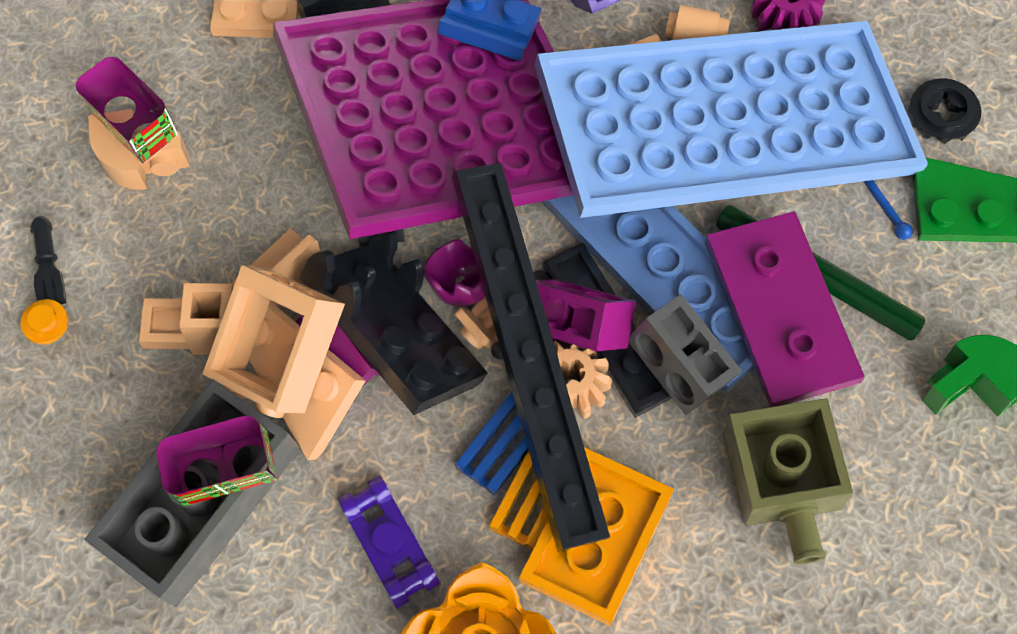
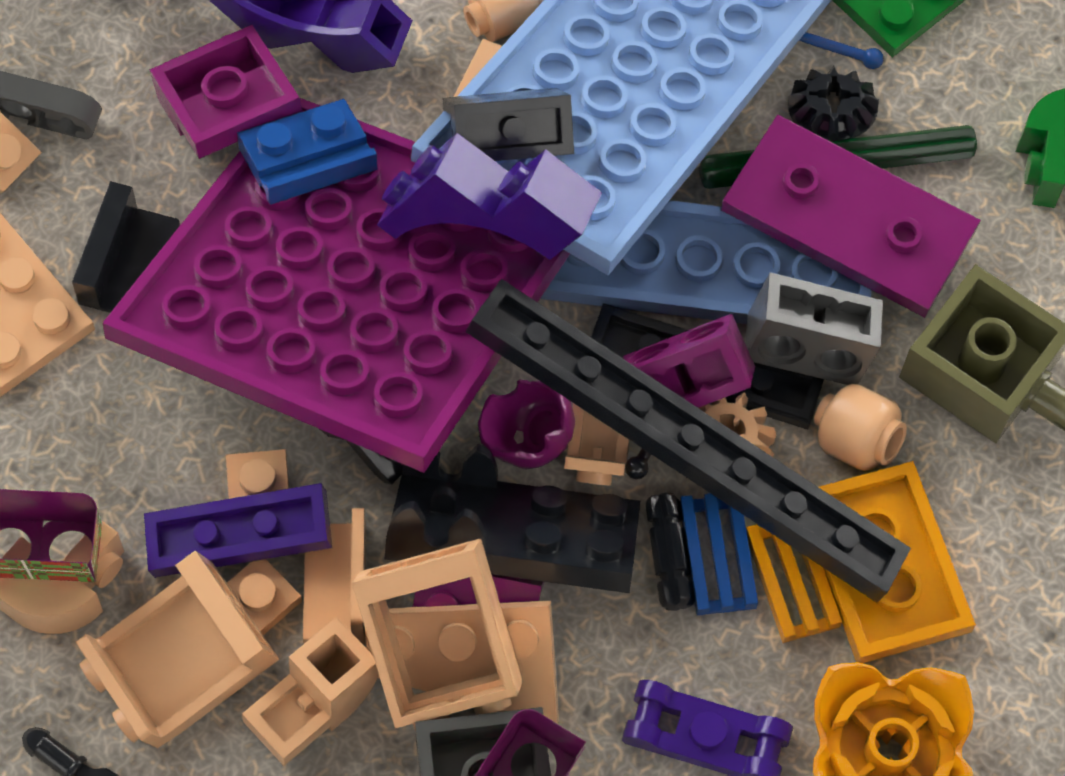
camera: 50 degrees left, 0 degrees up
(148, 239) = (177, 655): none -> light nougat panel
(227, 247) = (264, 594): none -> light nougat plate
(249, 200) = (239, 529): none -> dark purple plate
(291, 186) = (256, 472): none -> light nougat plate
(474, 417) = (669, 552): none -> black axle
(560, 132) = (460, 184): none -> dark purple arch
(602, 82) = (514, 122): none -> black panel
(662, 441) = (860, 427): none -> light nougat head
(849, 252) = (811, 109): none -> black gear

